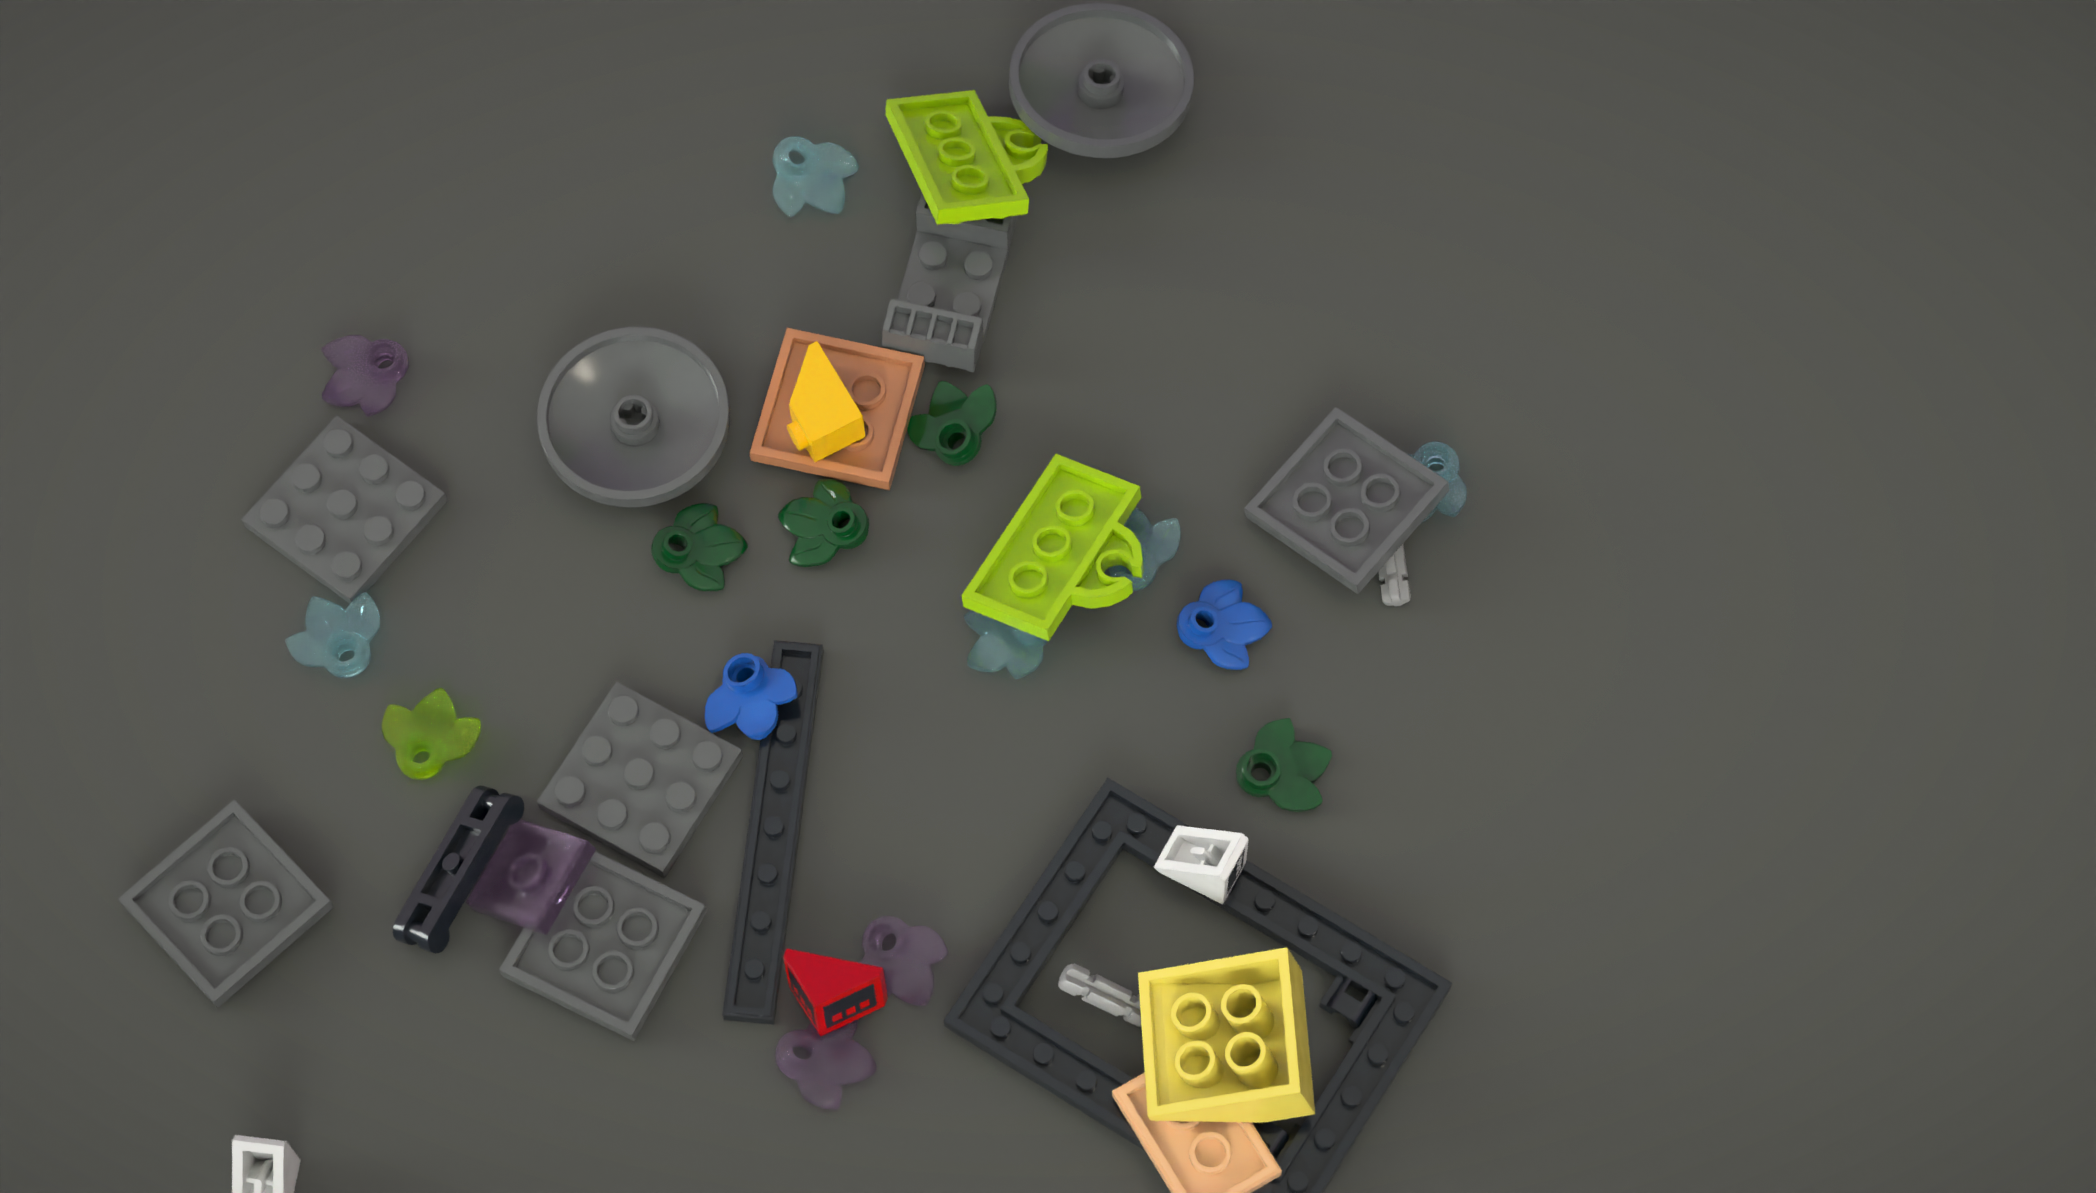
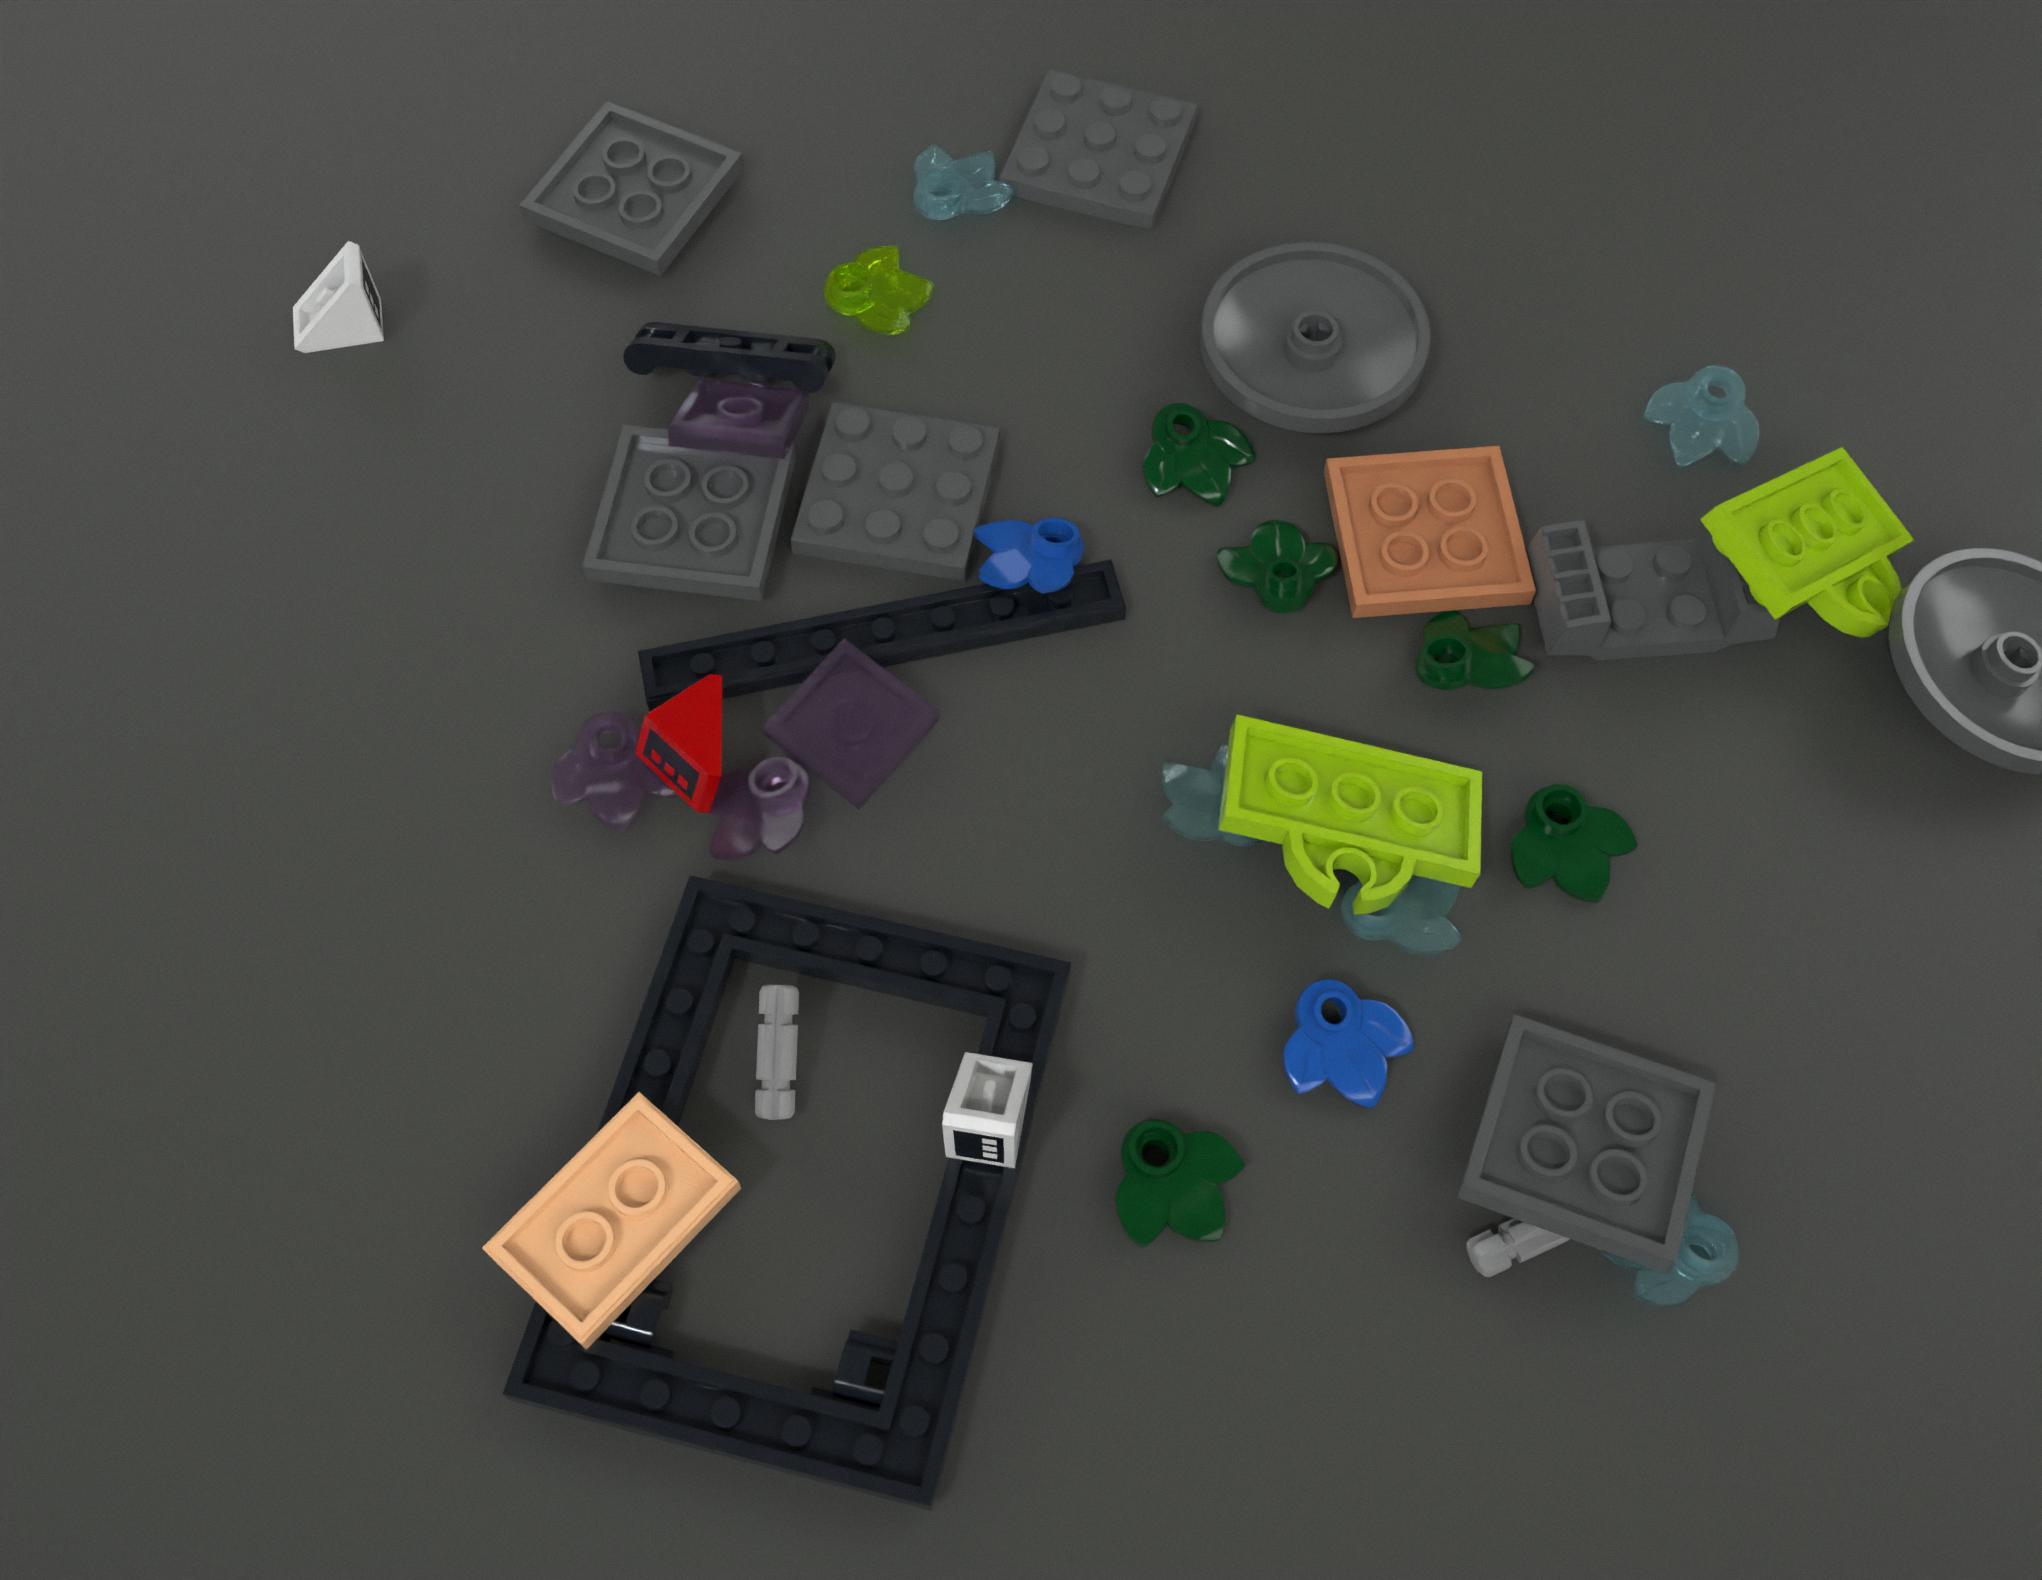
camera: 70 degrees right, 5 degrees down
(358, 372) = (1261, 118): clear purple plate -> none
(822, 408) = (1410, 496): yellow slope -> none
(850, 872) = (851, 723): none -> clear purple tile
(1133, 418) = (1569, 852): none -> dark green plate
(1227, 1040) = (734, 1211): light yellow slope -> none

